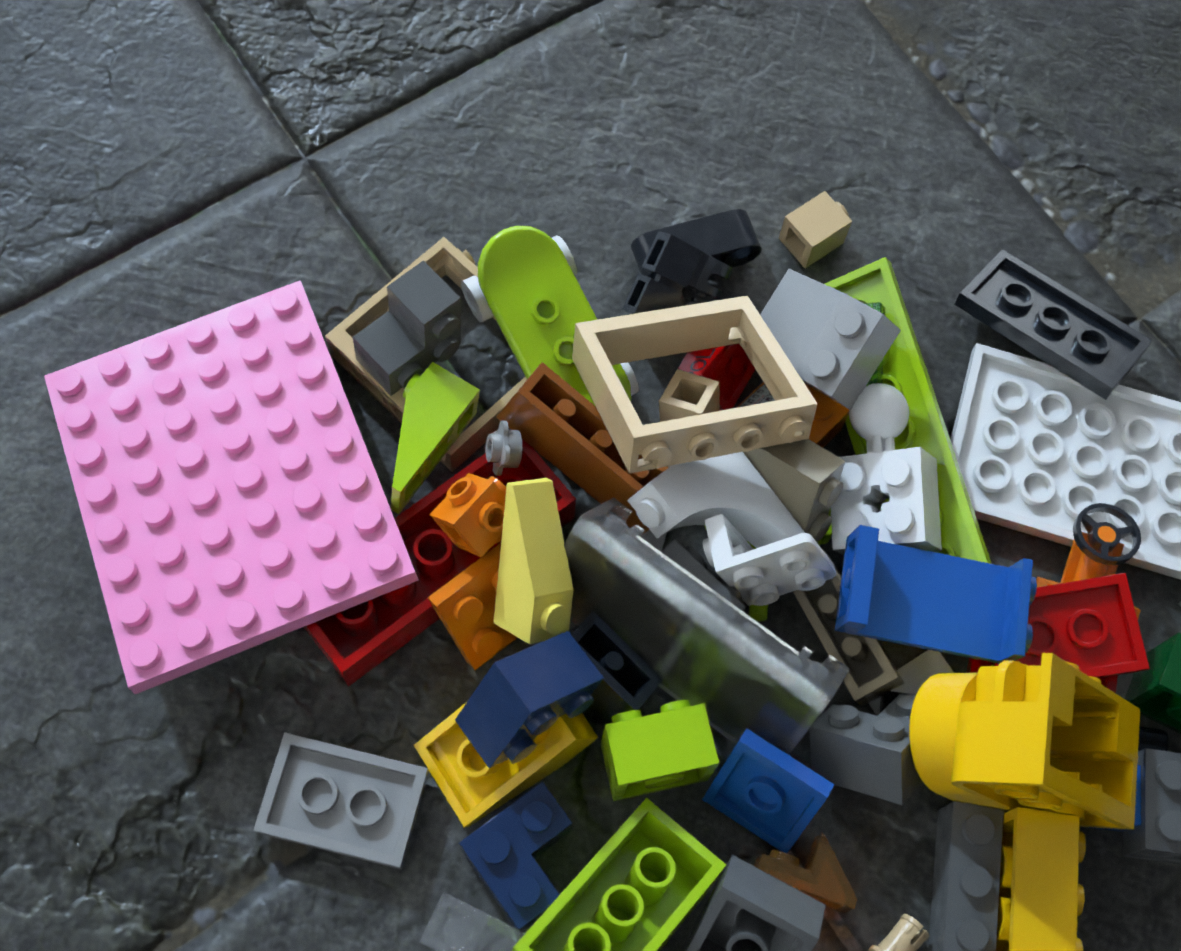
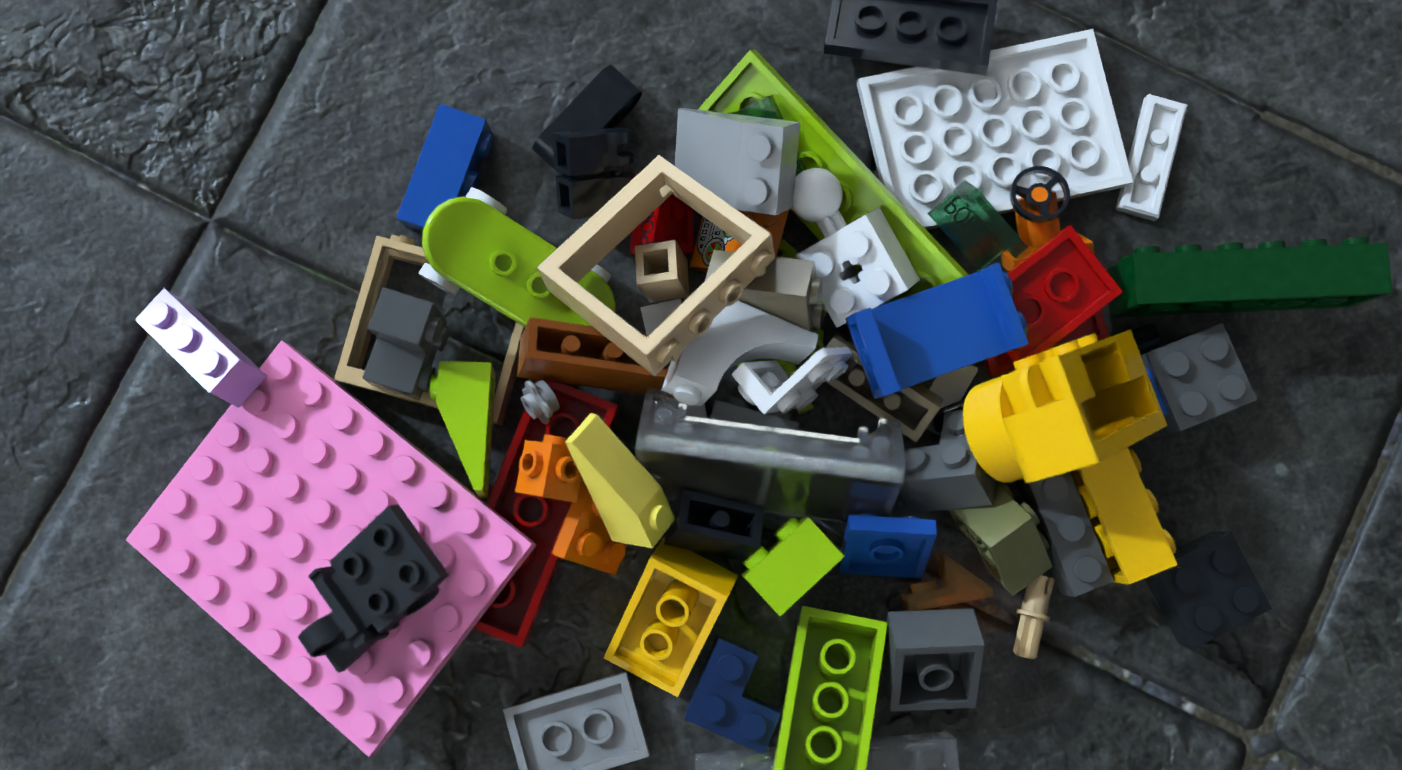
camera: 30 degrees left, 15 degrees up
(225, 246) = (201, 348): none -> brick
(247, 519) = (372, 587): none -> black plate
(526, 697) = (673, 594): dark blue brick -> none
(557, 205) = (445, 164): none -> blue brick
(815, 229) = (676, 46): tan brick -> none
(898, 856) = (1006, 539): none -> olive brick
(1026, 528) = (975, 226): none -> clear green panel

